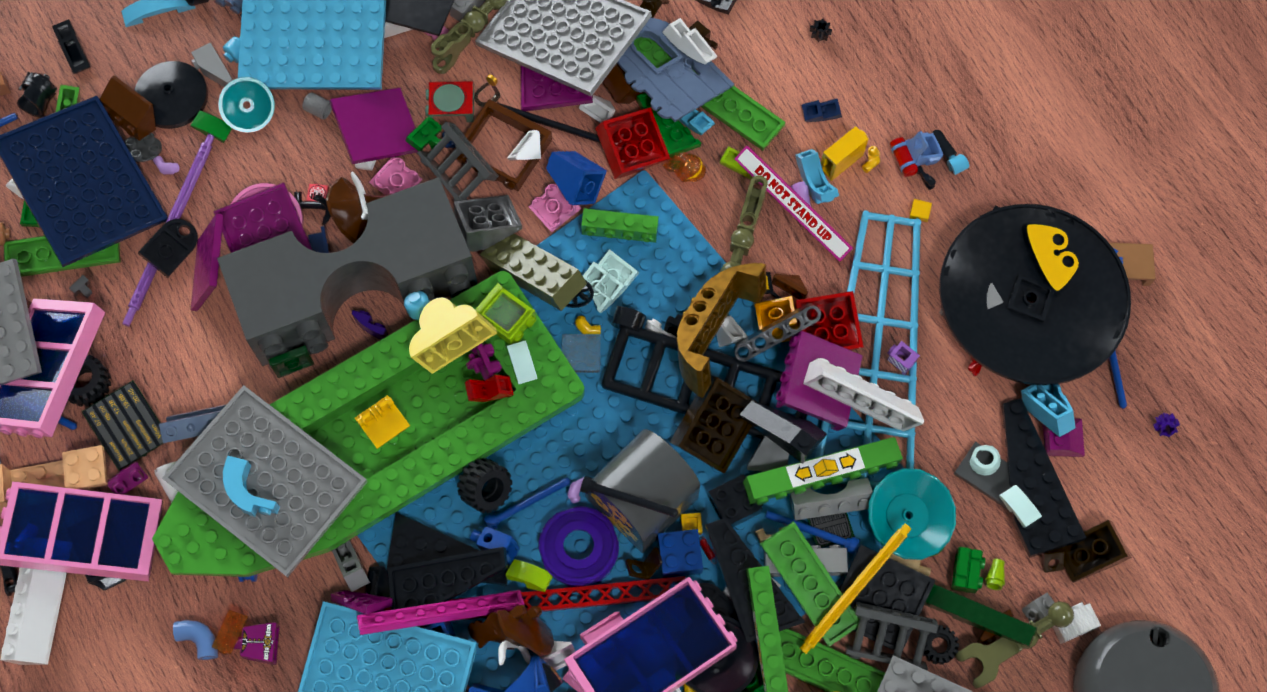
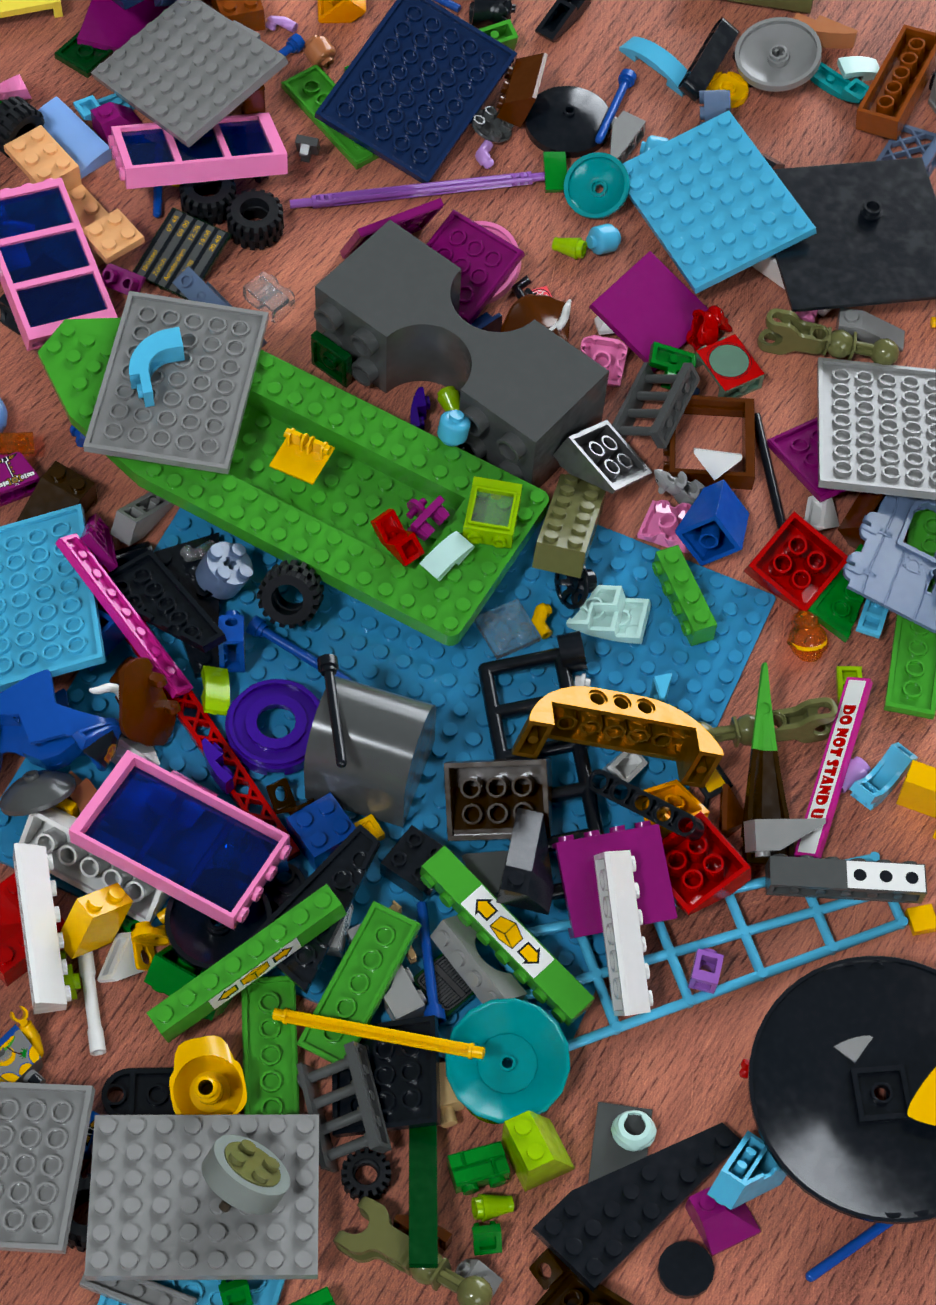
camera: 60 degrees right, 10 degrees down
(117, 346) = (250, 206): none -> black tyre
(160, 36) = (626, 80): none -> blue piece
(168, 247) = (393, 194): black tile -> none
(204, 379) = (268, 296): none -> clear brick
(285, 150) = (571, 247): none -> lime cone
(293, 124) = (603, 239): none -> medium azure head
(298, 616) = (58, 490): none -> dark brown slope
(317, 106) = (638, 246): light grey piece -> none
(373, 298) = (449, 398): none -> lime cone
(410, 532) = (194, 554): none -> clear arm
(411, 98) = (706, 327): none -> red animal
(436, 522) = (224, 570): none -> sand blue brick
(447, 333) = (428, 460): light yellow brick -> none
(491, 80) = (777, 395): clear smoke piece -> none
(535, 182) = (678, 487): none -> light grey animal
(587, 602) = (215, 763): none -> dark purple slope
(692, 281) = (660, 687): none -> medium azure slope
(813, 265) = (765, 787): none -> dark brown plate
(831, 262) = (772, 835): none -> light grey slope
(878, 239) = (845, 879): none -> dark grey brick
(976, 529) = (534, 1149): none -> lime slope
(1017, 589) = (487, 1238): none -> green tile
(1020, 505) = (589, 1187): light aqua slope -> none
(1087, 476) = (685, 1269): none -> black tile

